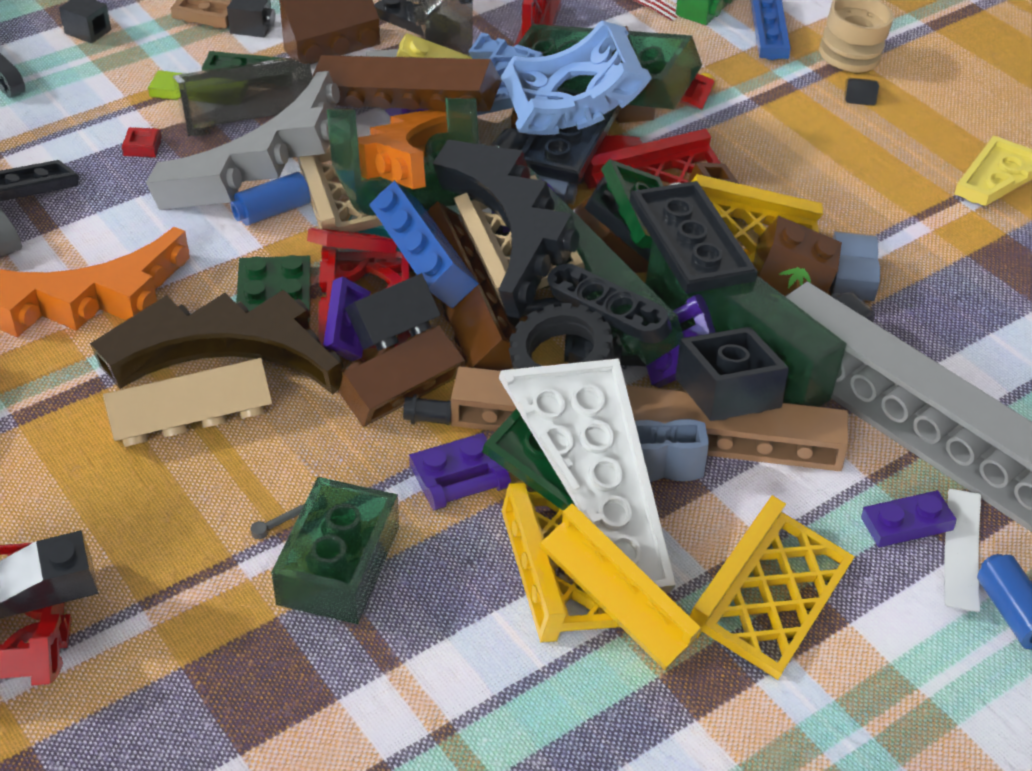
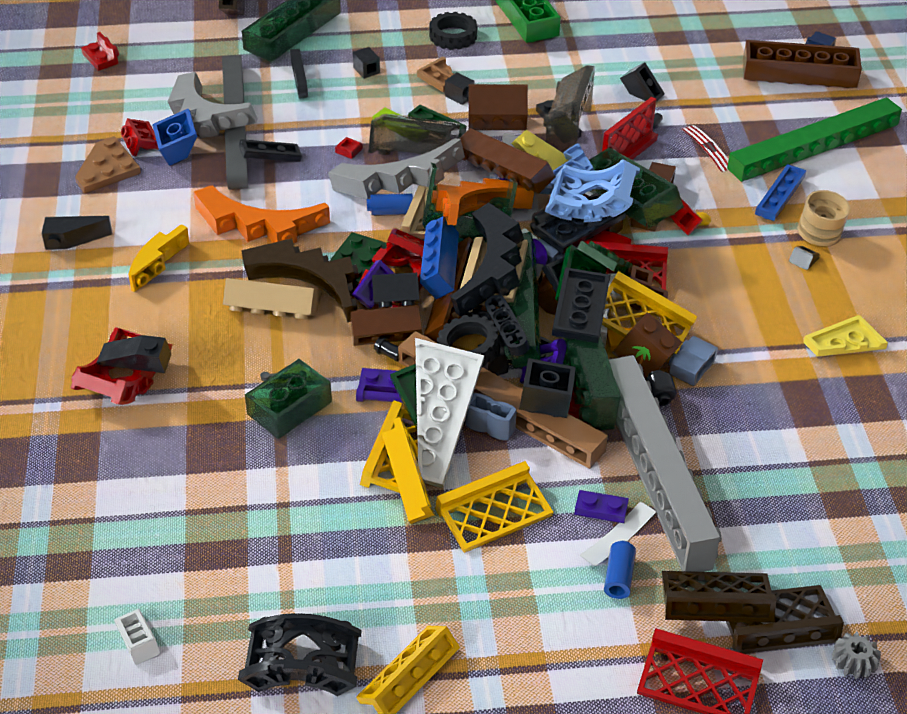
camera: 30 degrees right, 0 degrees up
(669, 168) = (605, 257): none -> dark green plate

